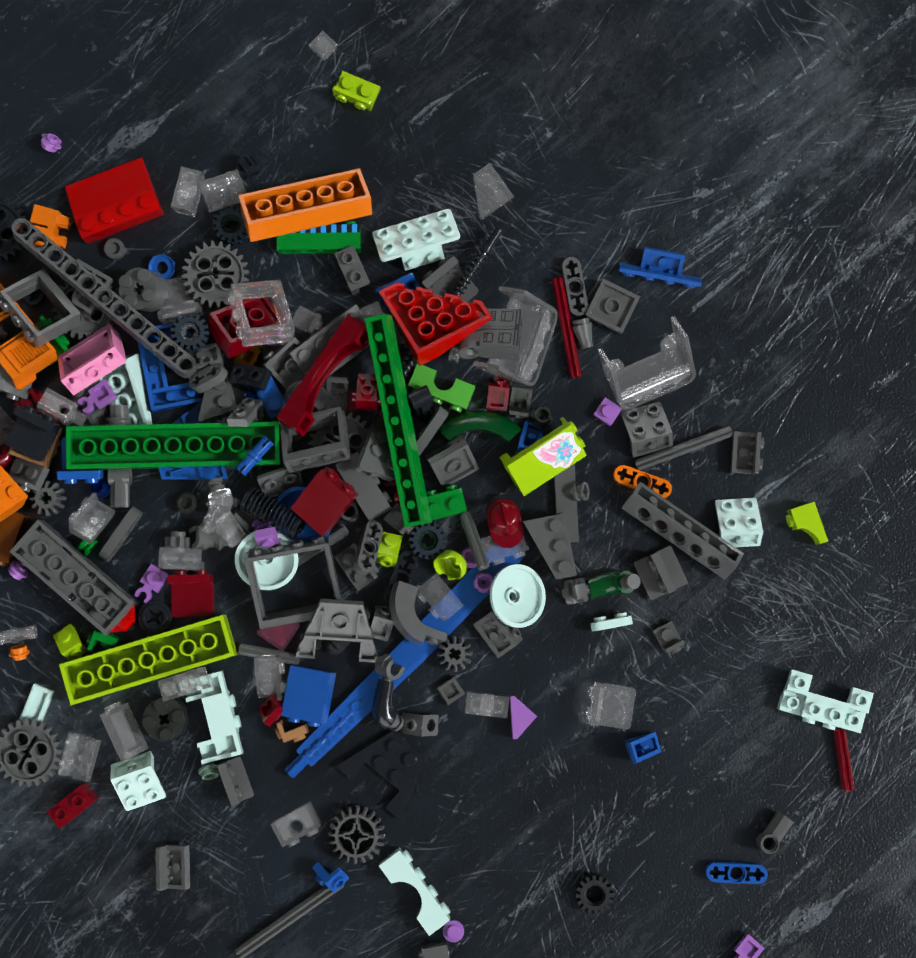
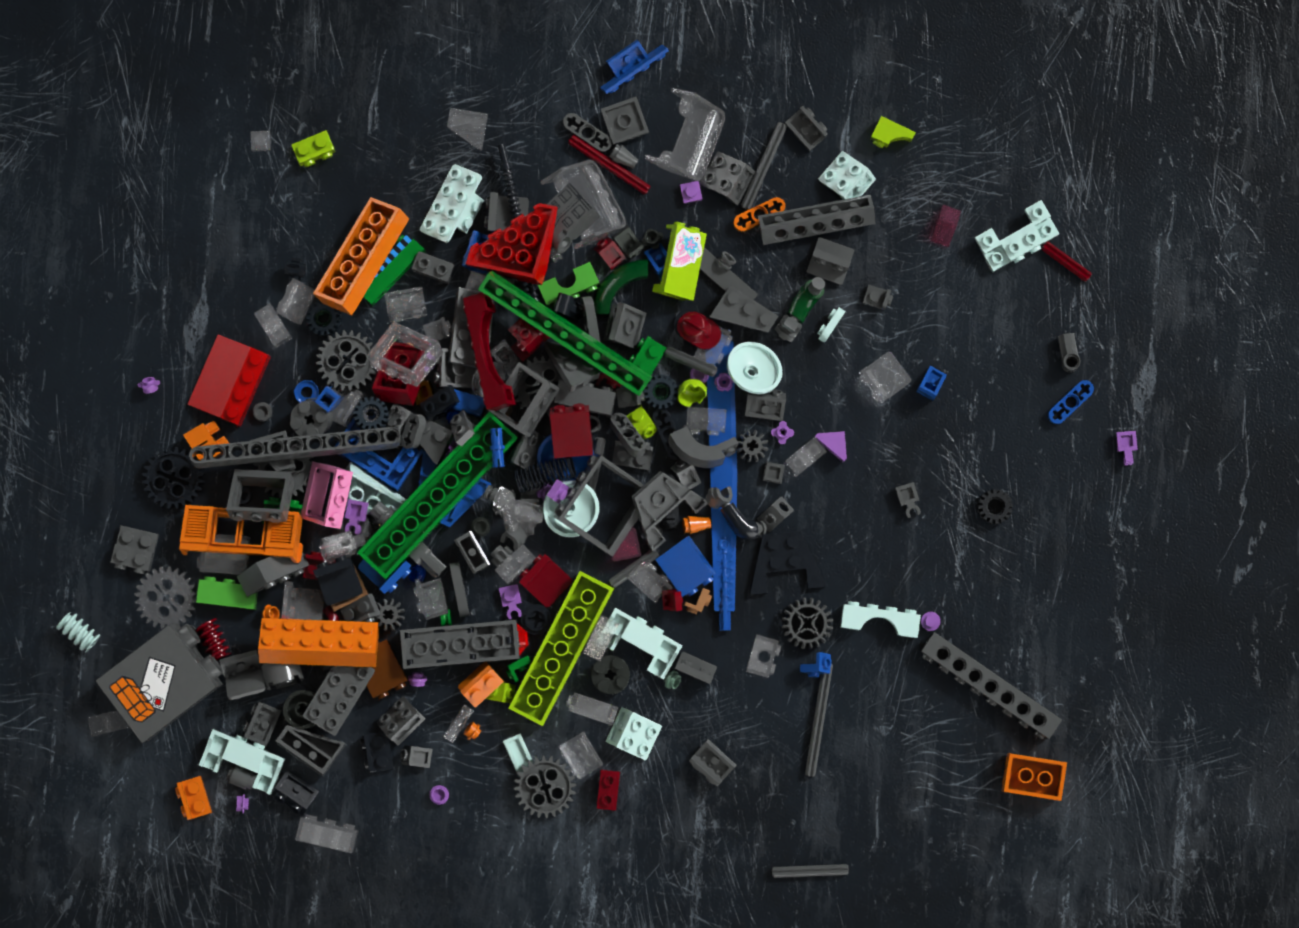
camera: 45 degrees left, 0 degrees up
(57, 623) = (480, 684): none -> orange bracket
(158, 516) = (472, 552): none -> dark grey brick
(171, 288) = (329, 399): none -> blue leg
(304, 277) = (405, 304): none -> clear bracket
(349, 668) = (694, 524): none -> orange cone
(484, 671) = (782, 437): none -> medium lavender plate
(535, 816) = (907, 496): none -> dark grey plate
(777, 636) = (946, 225): none -> clear pink slope

